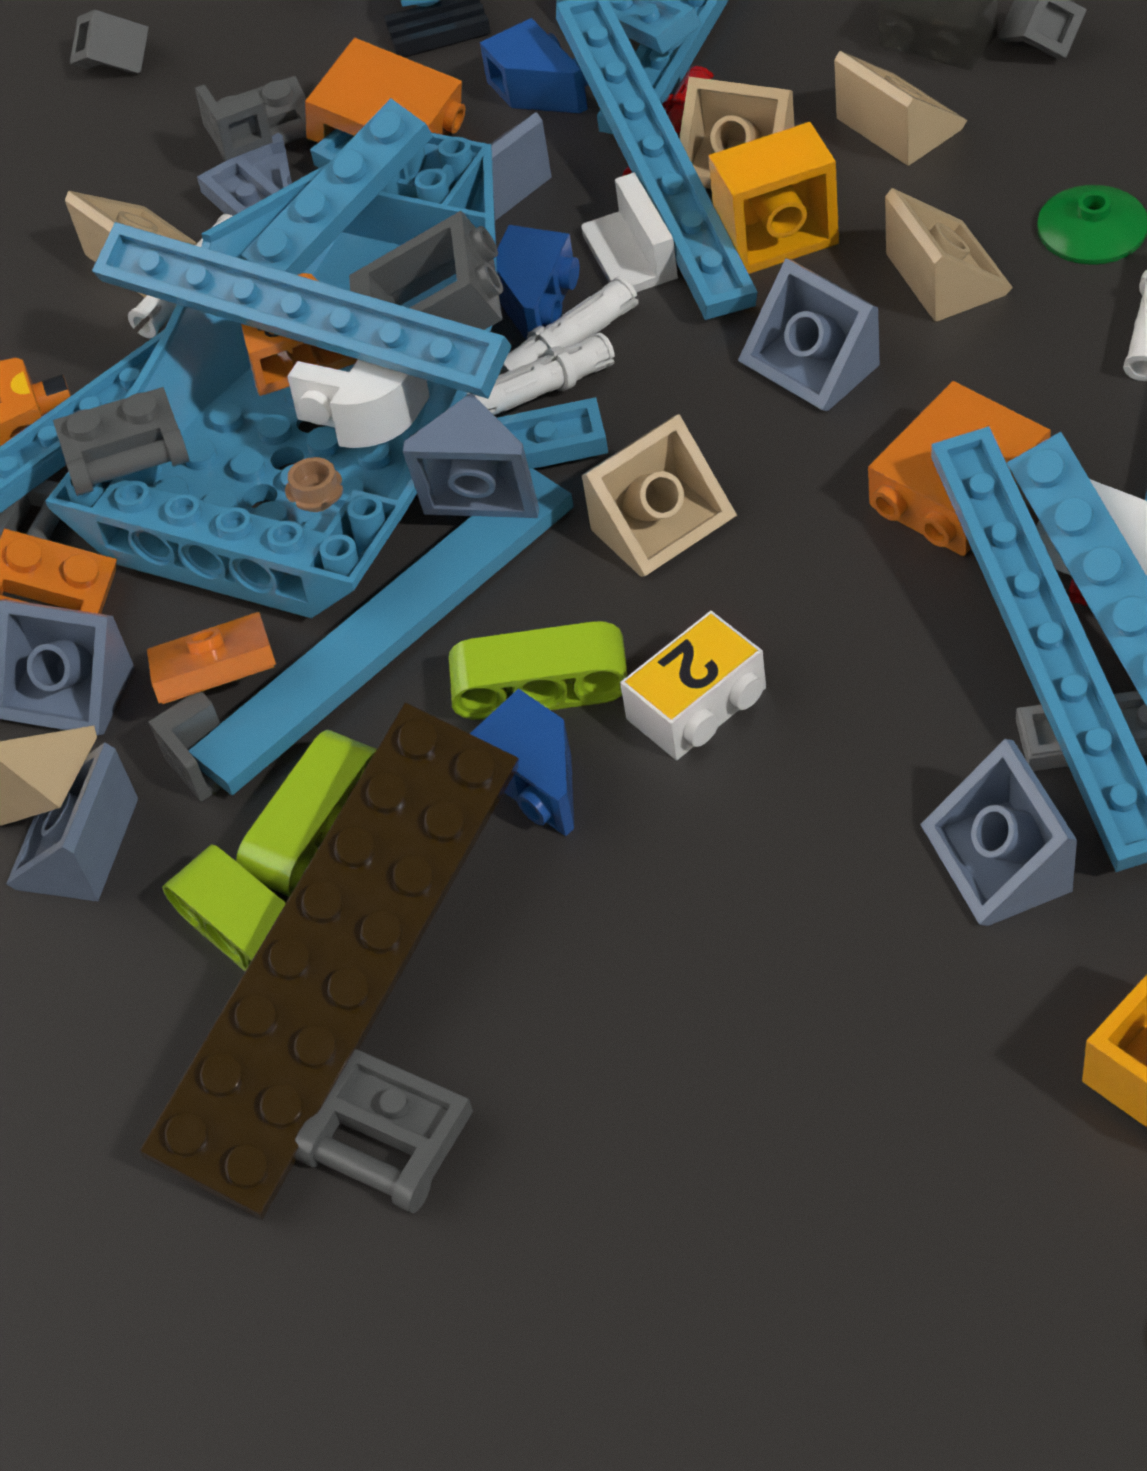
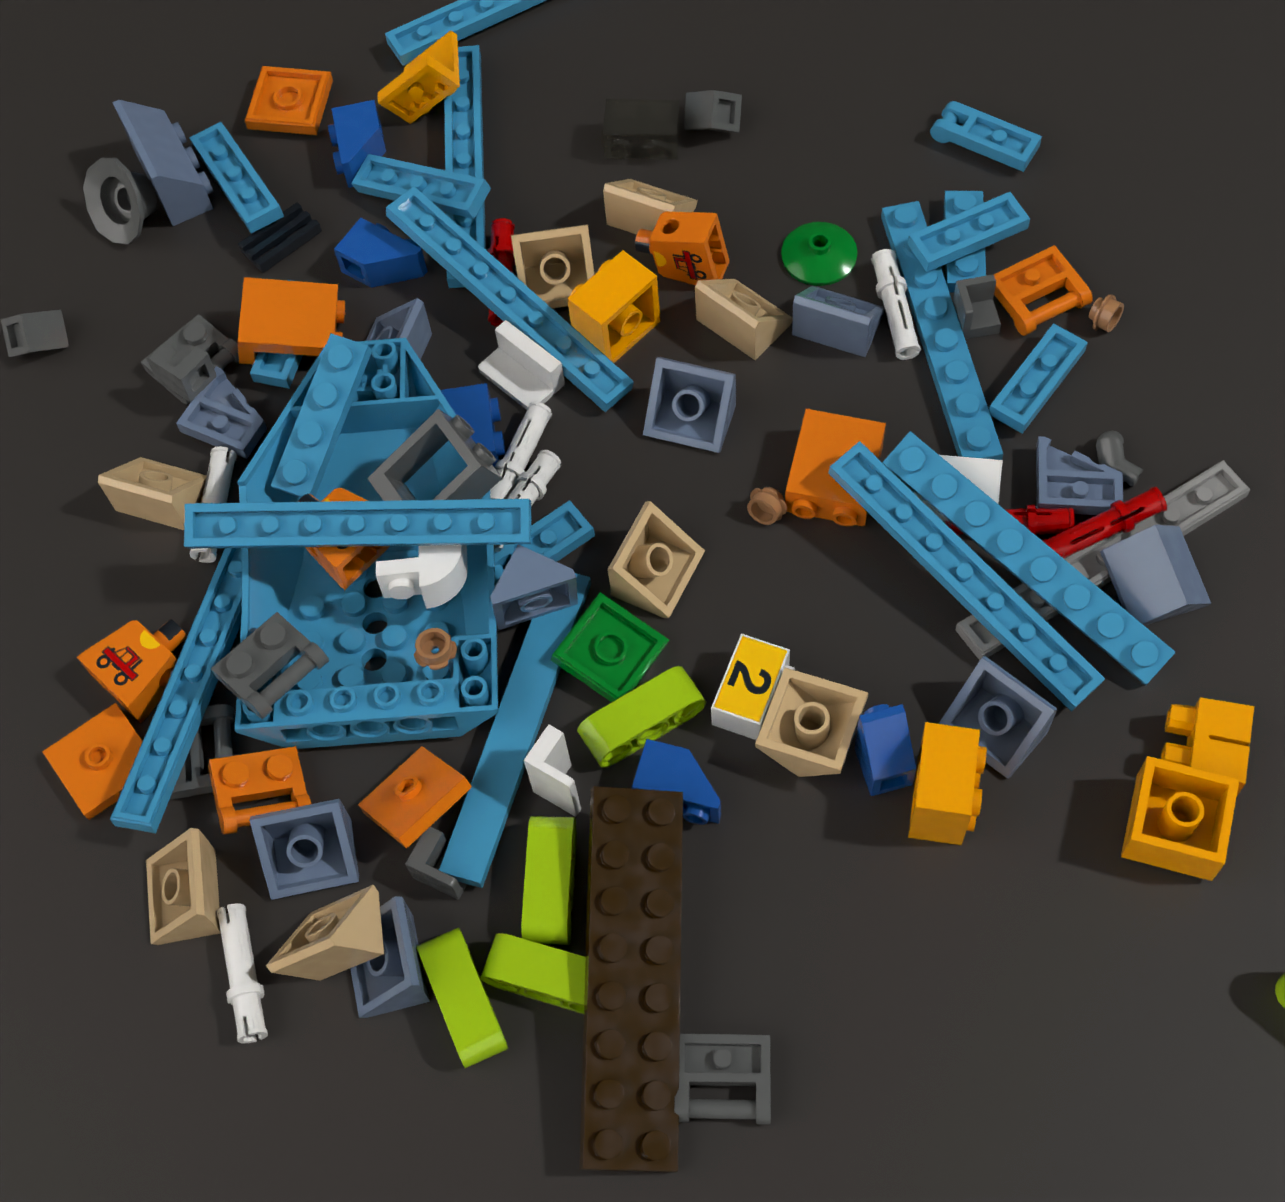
camera: 30 degrees left, 10 degrees up
(128, 906) = (462, 997): none -> lime beam
(382, 672) = (547, 771): none -> white panel
(545, 577) = (609, 649): none -> green plate
(736, 745) = (810, 724): none -> tan slope
(818, 812) = (885, 749): none -> blue slope
(843, 485) = (766, 505): none -> medium nougat plate
(871, 882) = (947, 784): none -> light orange brick
(915, 154) = (686, 246): none -> orange torso
(1062, 300) = (835, 320): none -> sand blue slope

